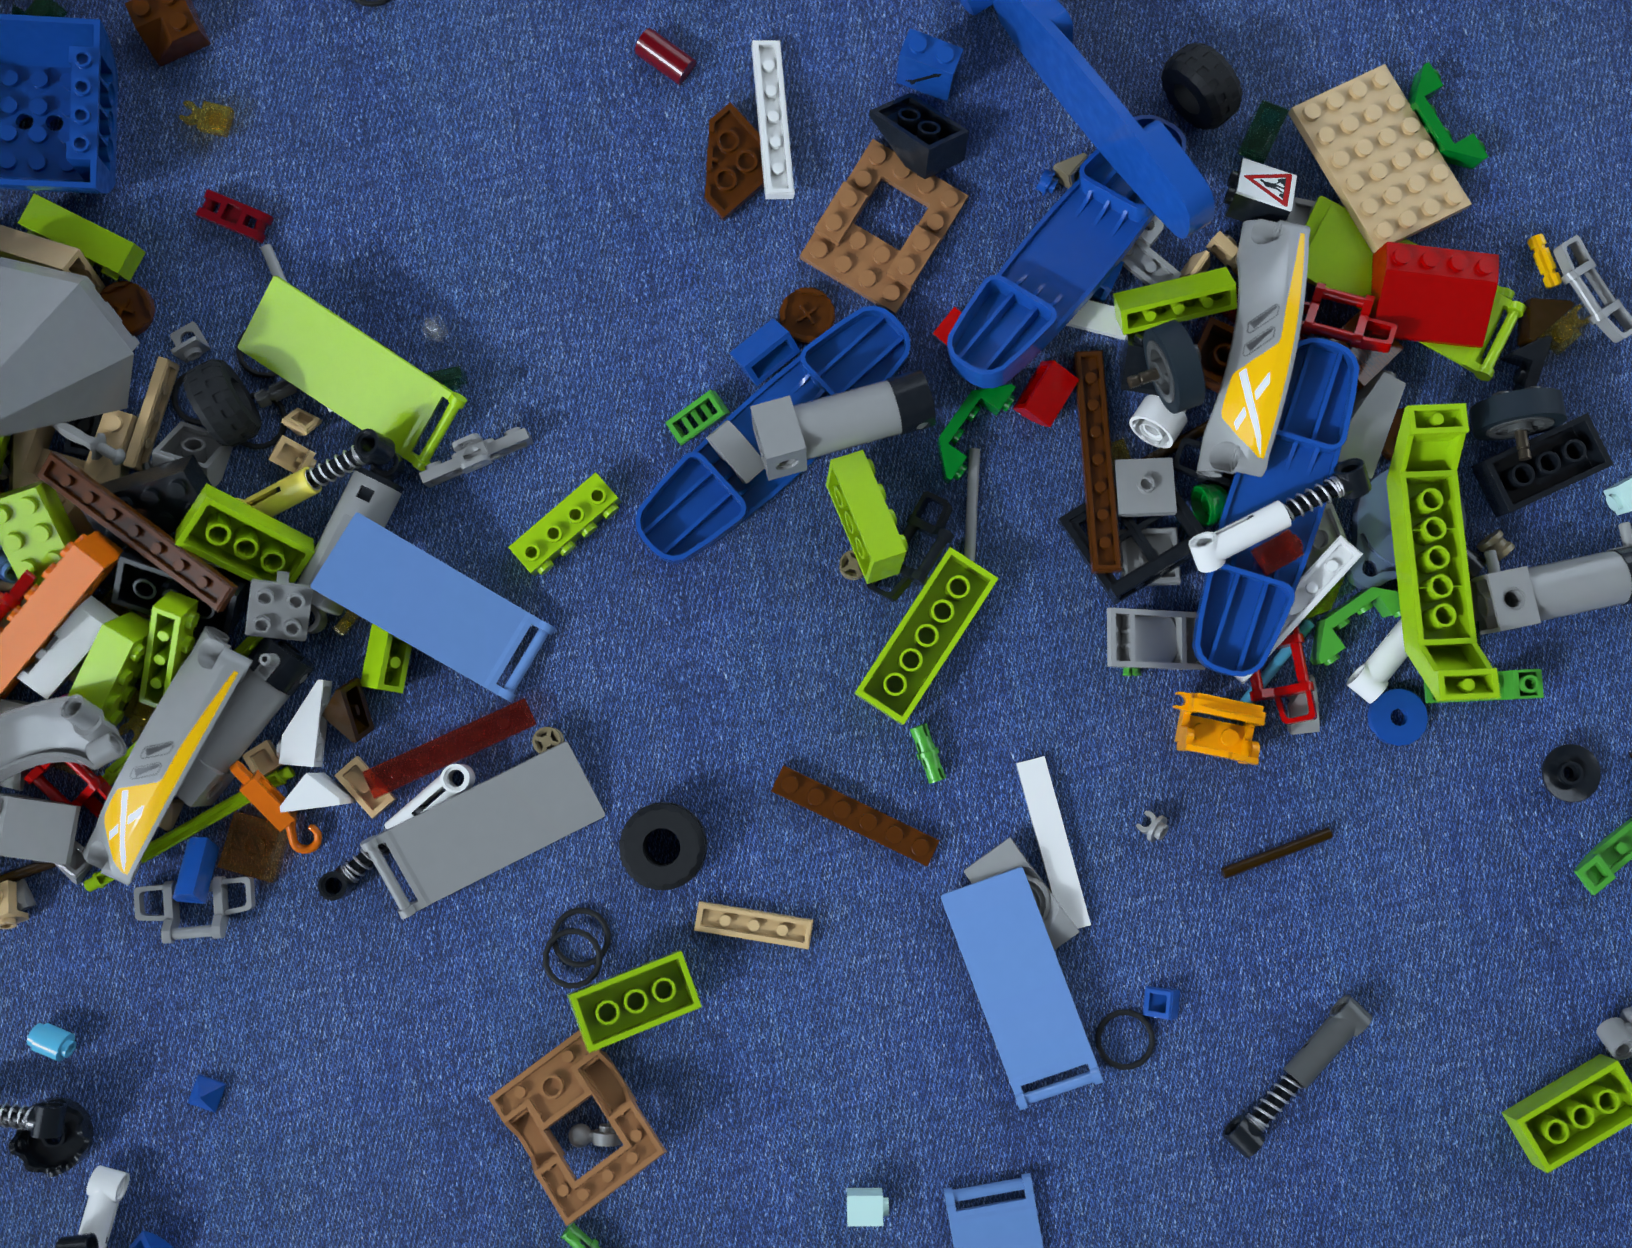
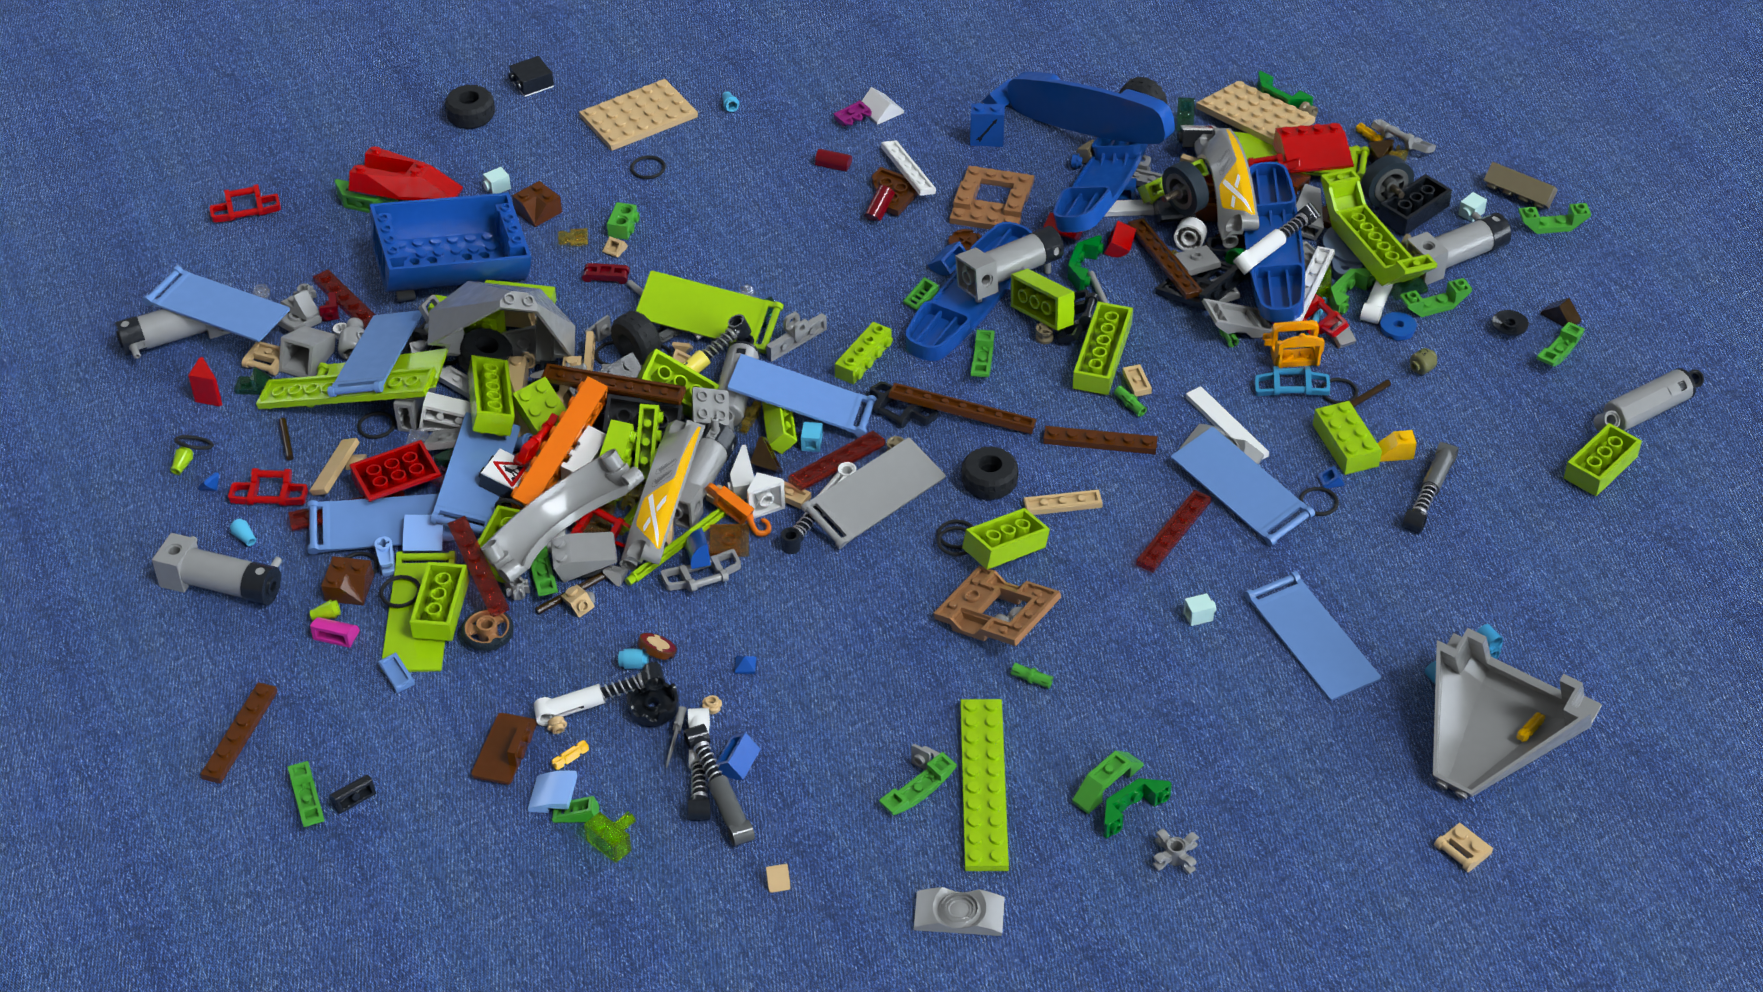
camera: 15 degrees left, 40 degrees down
(74, 1191) = (677, 727): none -> light grey sword
(86, 1035) = (657, 646): none -> tile
(142, 1150) = (713, 703): none -> tan plate
(267, 156) = (614, 247): none -> tan slope
(283, 101) = (622, 220): none -> bright green brick
(432, 680) = (811, 436): none -> medium azure brick
(592, 676) = (912, 411): none -> black bar
(670, 694) = (962, 408): none -> reddish brown tile
(696, 196) = (879, 203): none -> dark red brick
(737, 451) = (955, 299): light grey slope -> none
(742, 587) = (983, 353): none -> bright green slope
(889, 1040) = (1173, 531): none -> clear red plate
(921, 135) = (1002, 156): black slope -> none
(954, 712) = (1137, 380): none -> tan plate
(1157, 828) = (1282, 401): light grey plate -> none
(1199, 816) = (1277, 390): none -> dark azure bar
(1216, 939) = (1347, 437): none -> lime brick
(1269, 843) = (1341, 380): none -> black piece
(1278, 552) = (1287, 253): clear red bracket -> none
(1279, 979) = (1398, 446): none -> yellow slope
(1400, 816) = (1423, 361): none -> olive head
(1468, 177) = (1312, 110): none -> dark tan wheel

